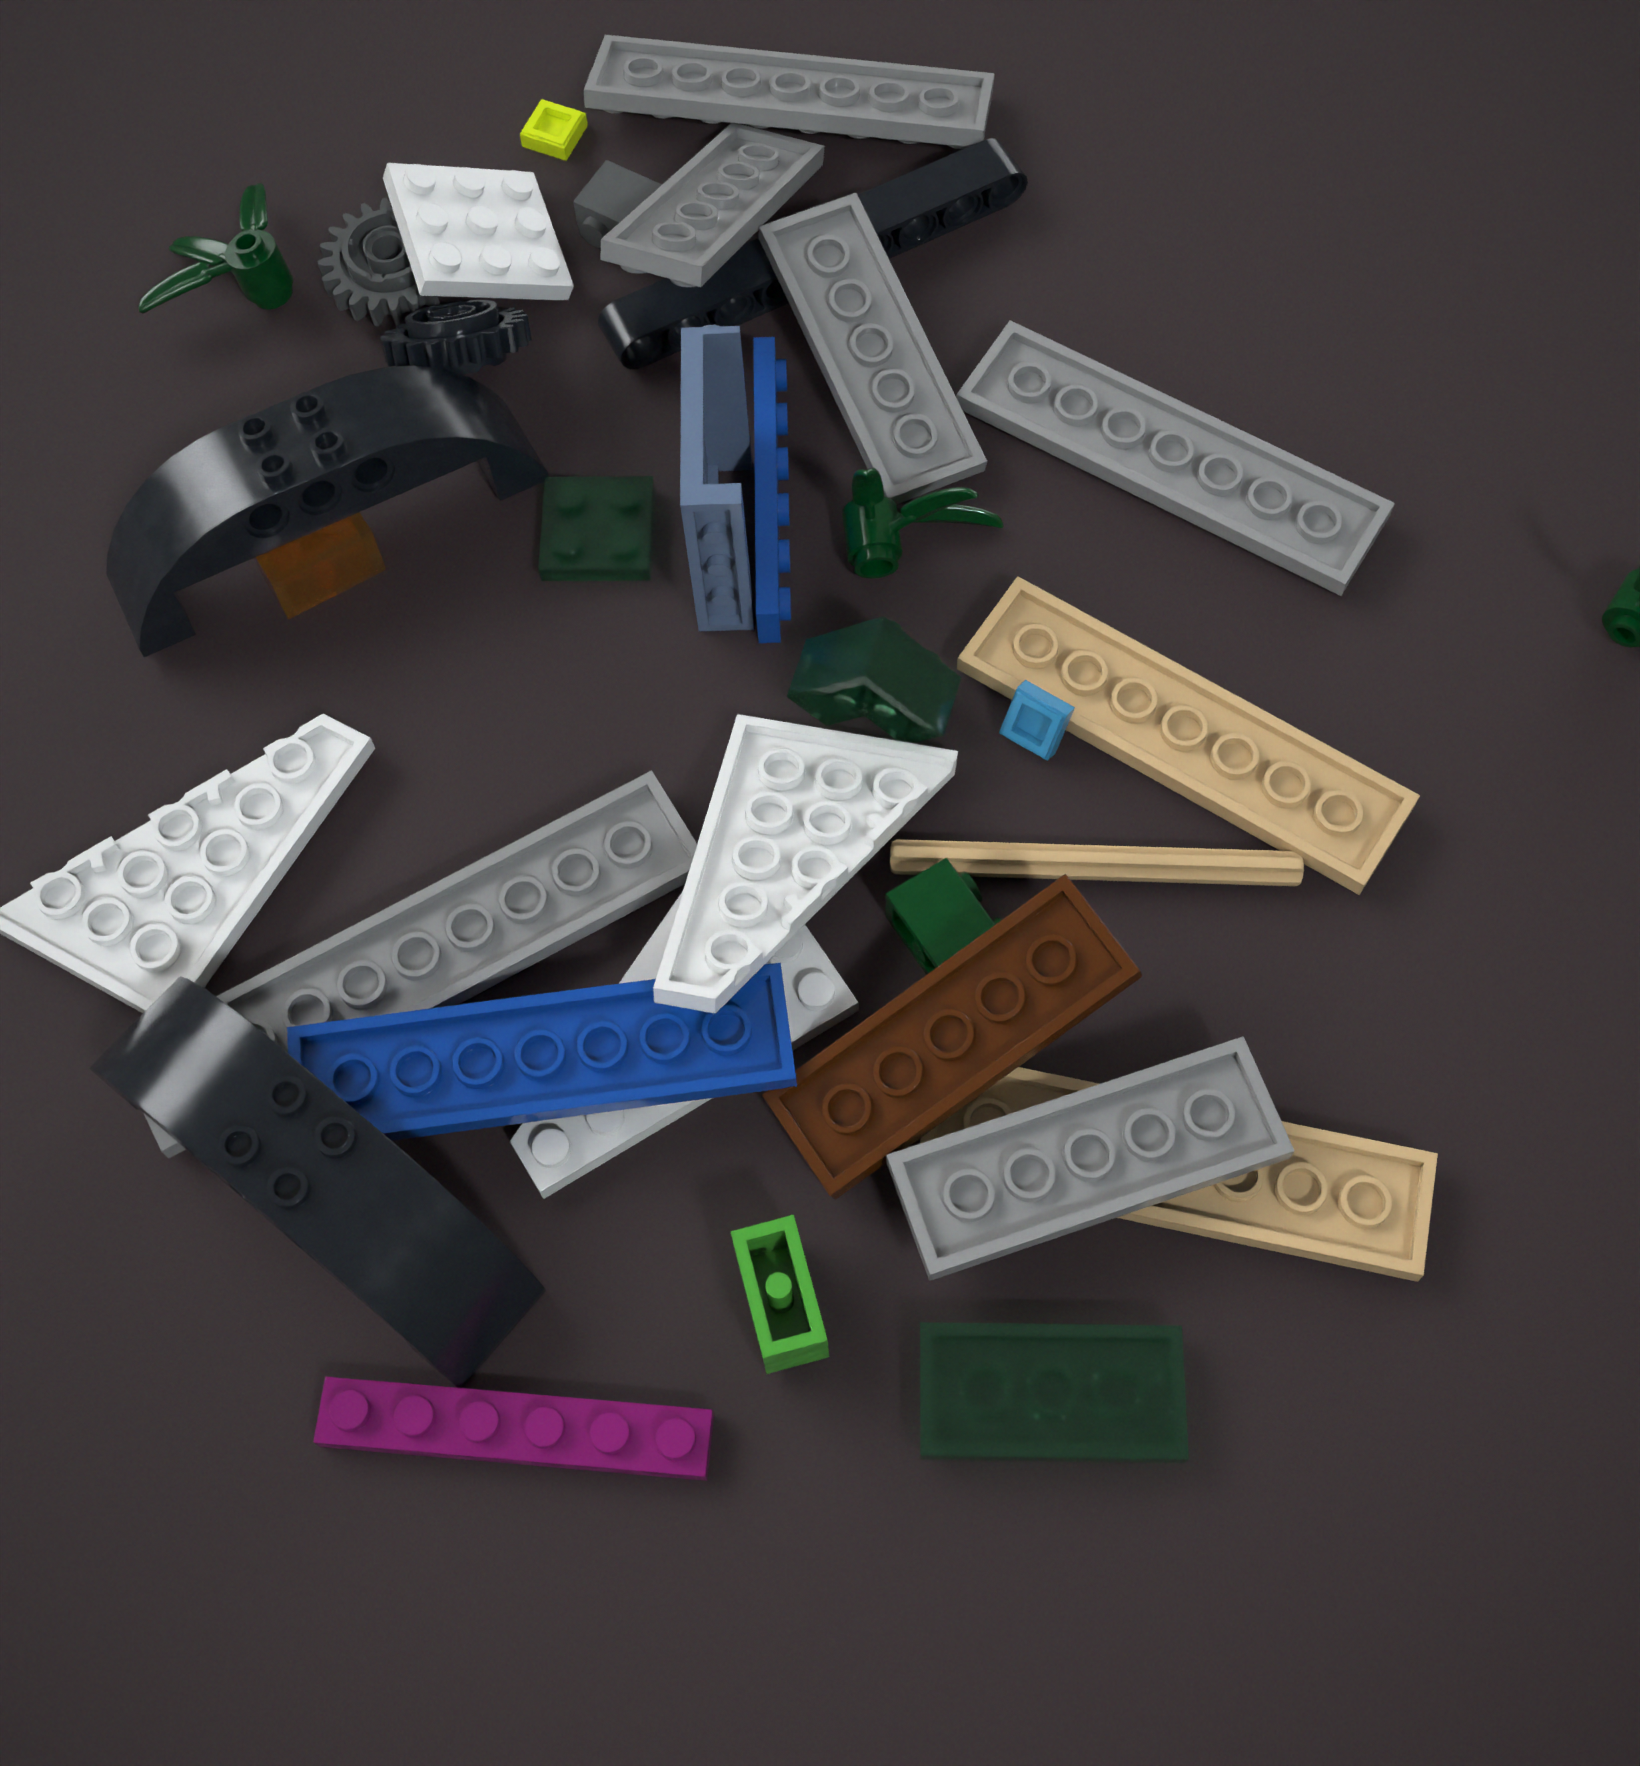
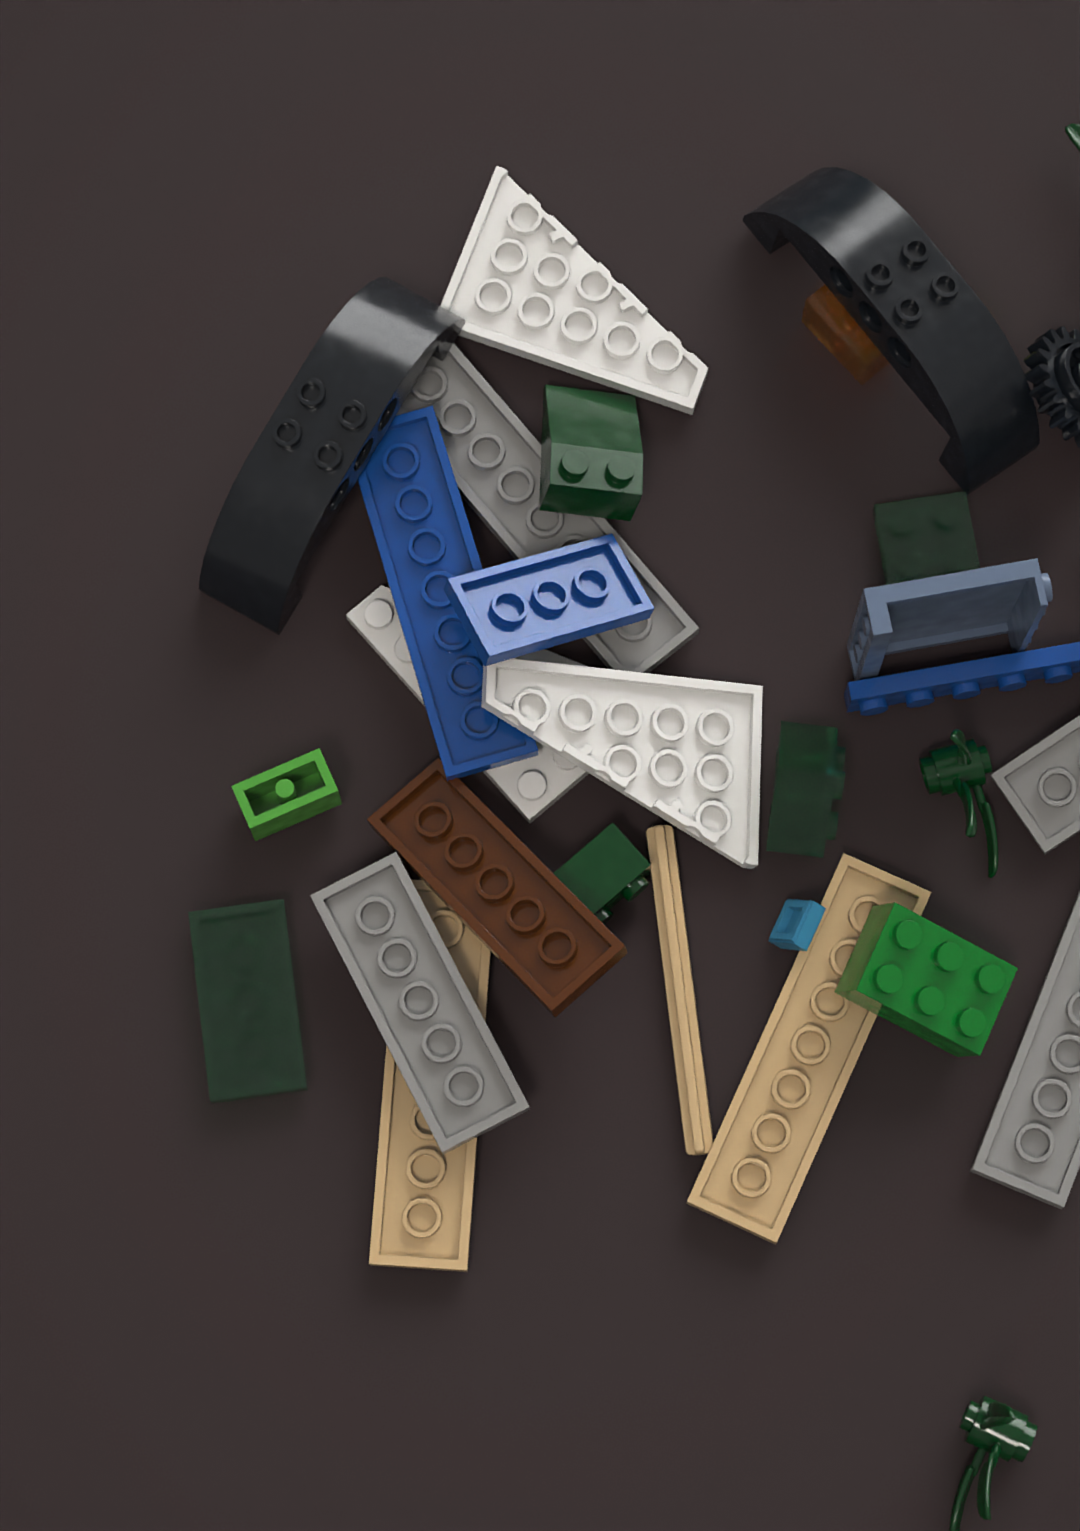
camera: 80 degrees right, 10 degrees up
(401, 854) = (590, 453): none -> dark green slope
(515, 1428) = (176, 634): magenta plate -> none
(589, 915) = (548, 599): none -> plate
(1126, 587) = (926, 980): none -> green brick

